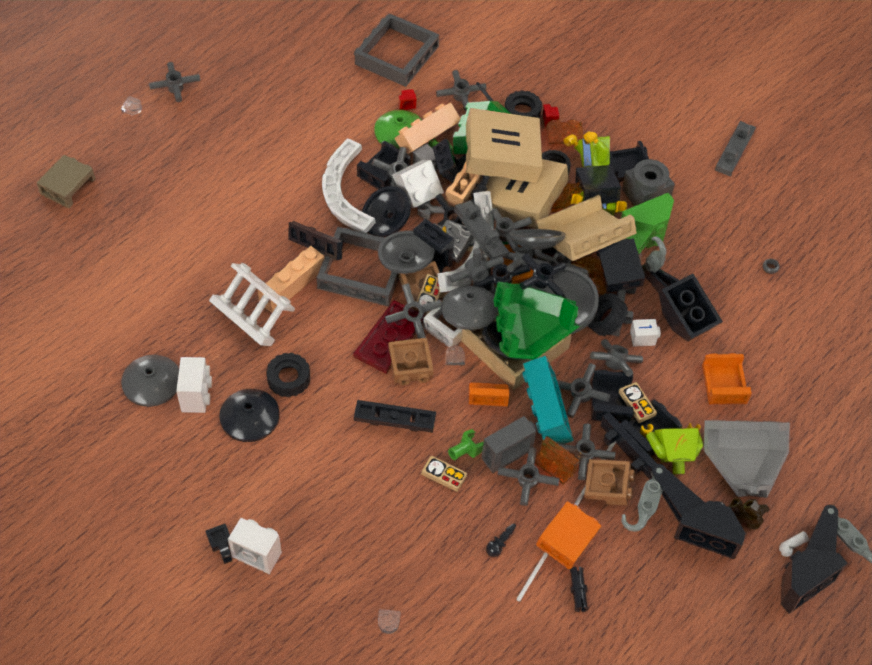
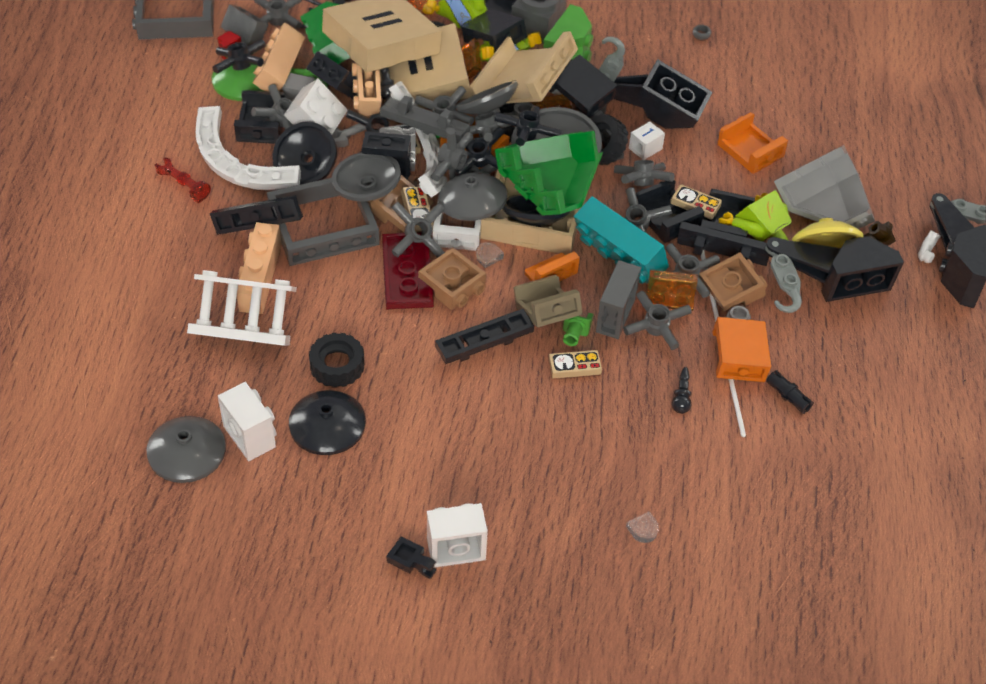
camera: 35 degrees left, 5 degrees down
(300, 200) = (199, 190): none -> clear red piece
(397, 114) = (239, 56): none -> black bar
(427, 90) = (244, 24): none -> dark grey brick
(458, 416) = (546, 301): none -> dark tan panel
(592, 508) = (739, 312): none -> light grey plate
(706, 486) = (827, 233): none -> light yellow dish

